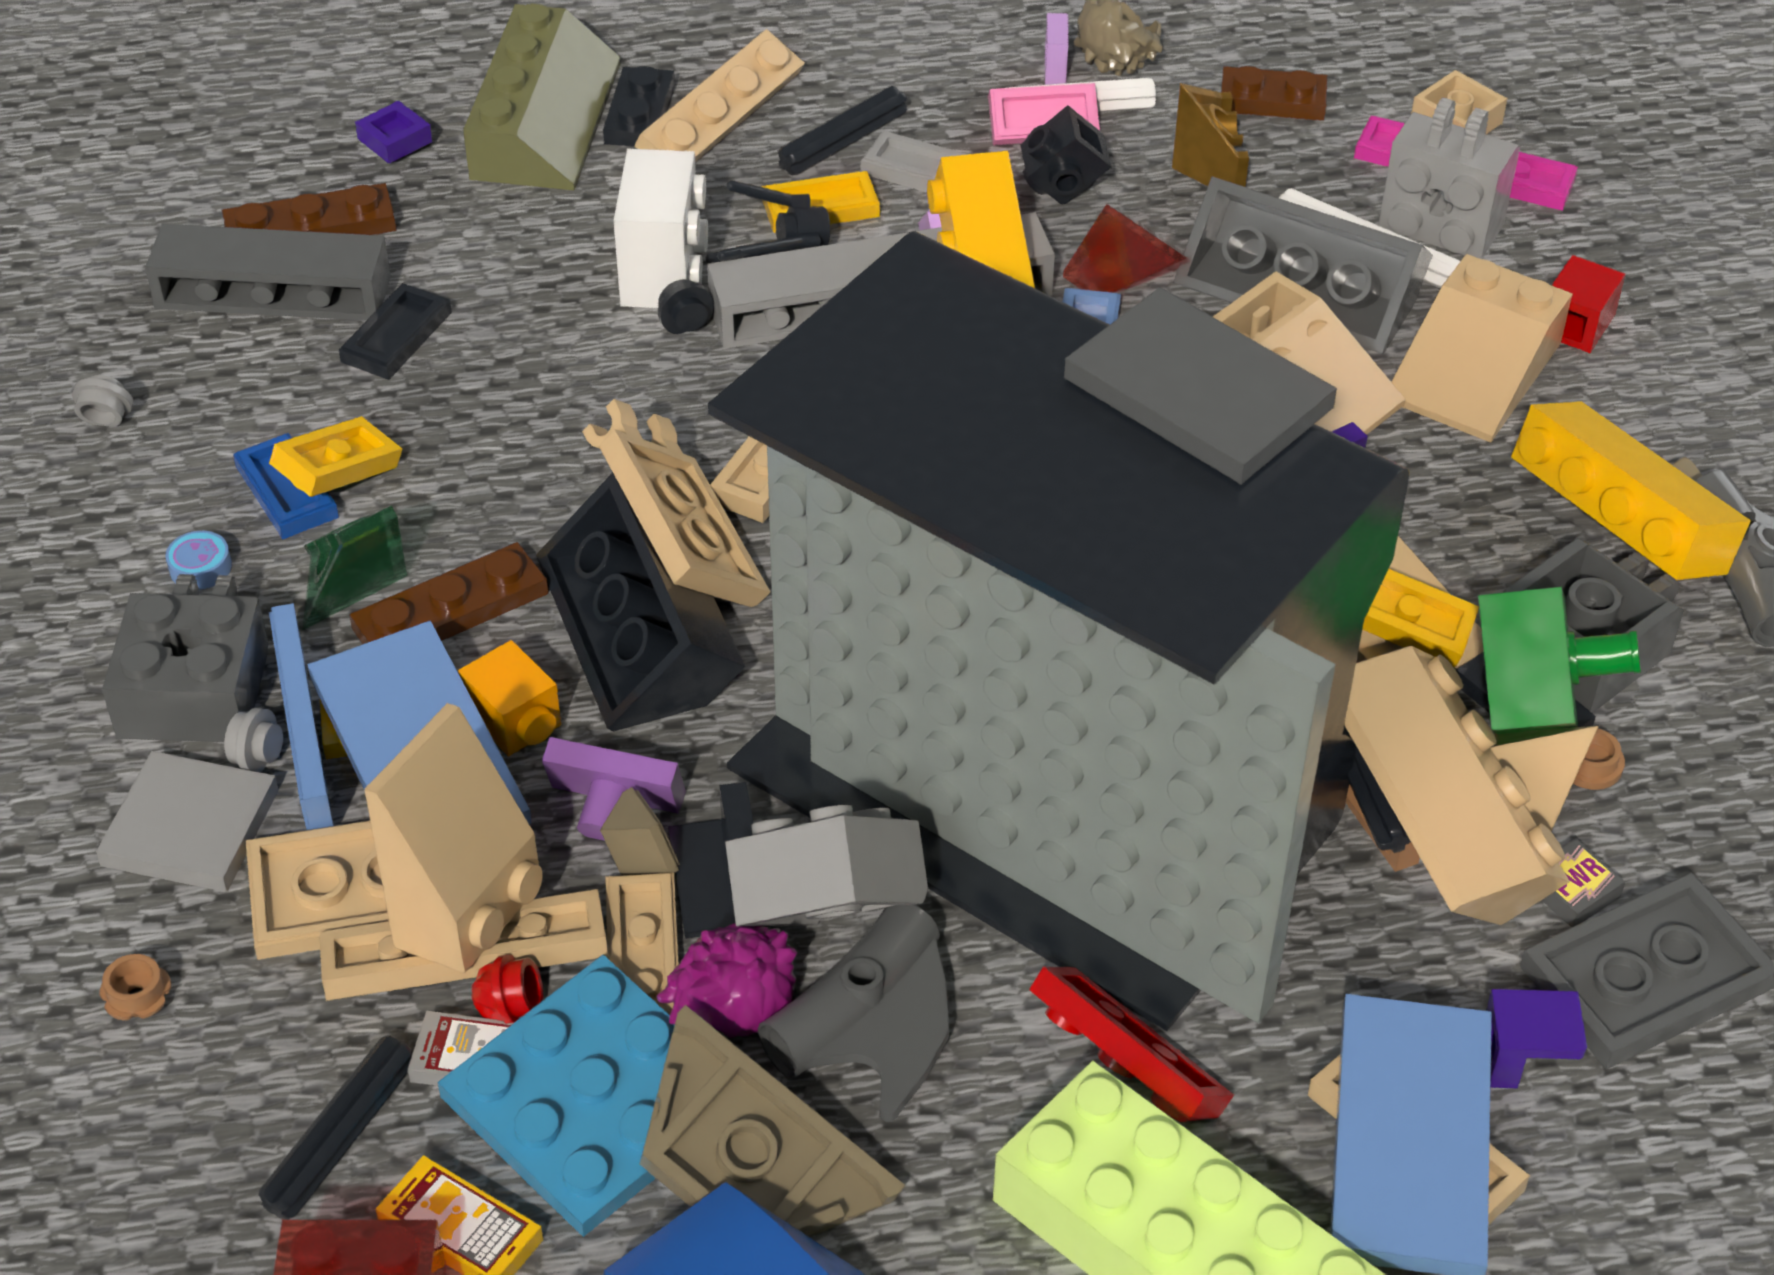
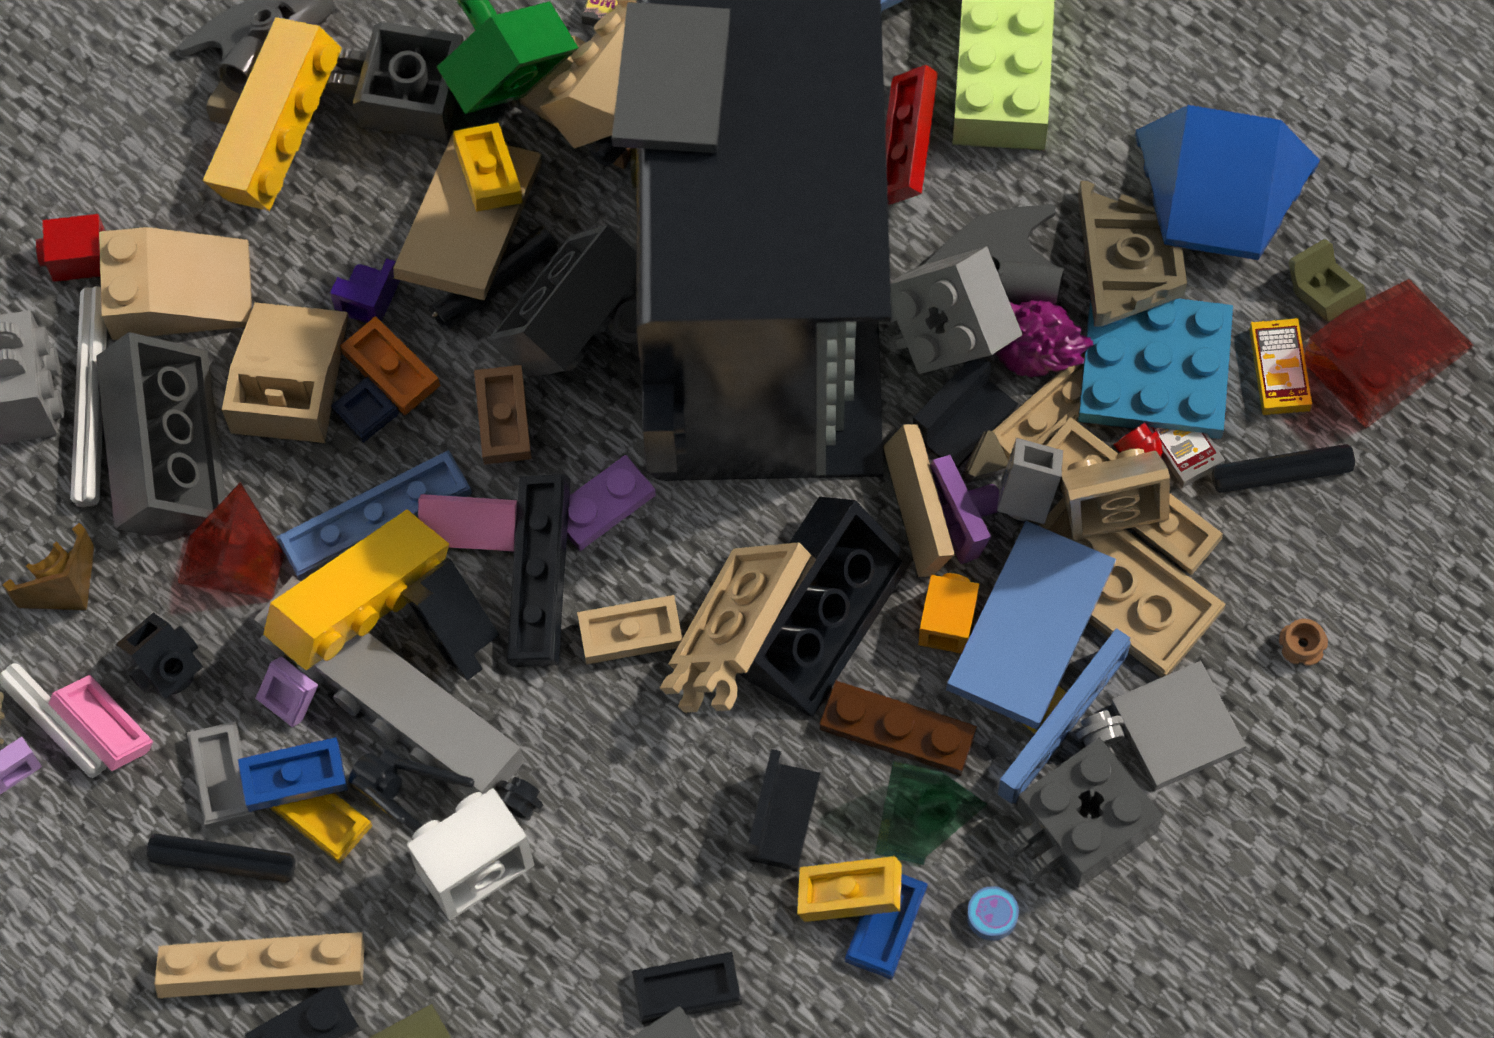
camera: 125 degrees left, 20 degrees up
(468, 464) = (782, 814): none -> black panel
(562, 811) = (1030, 481): none -> light grey brick
(697, 766) = (918, 500): none -> tan tile
(861, 176) = (292, 774): none -> blue plate

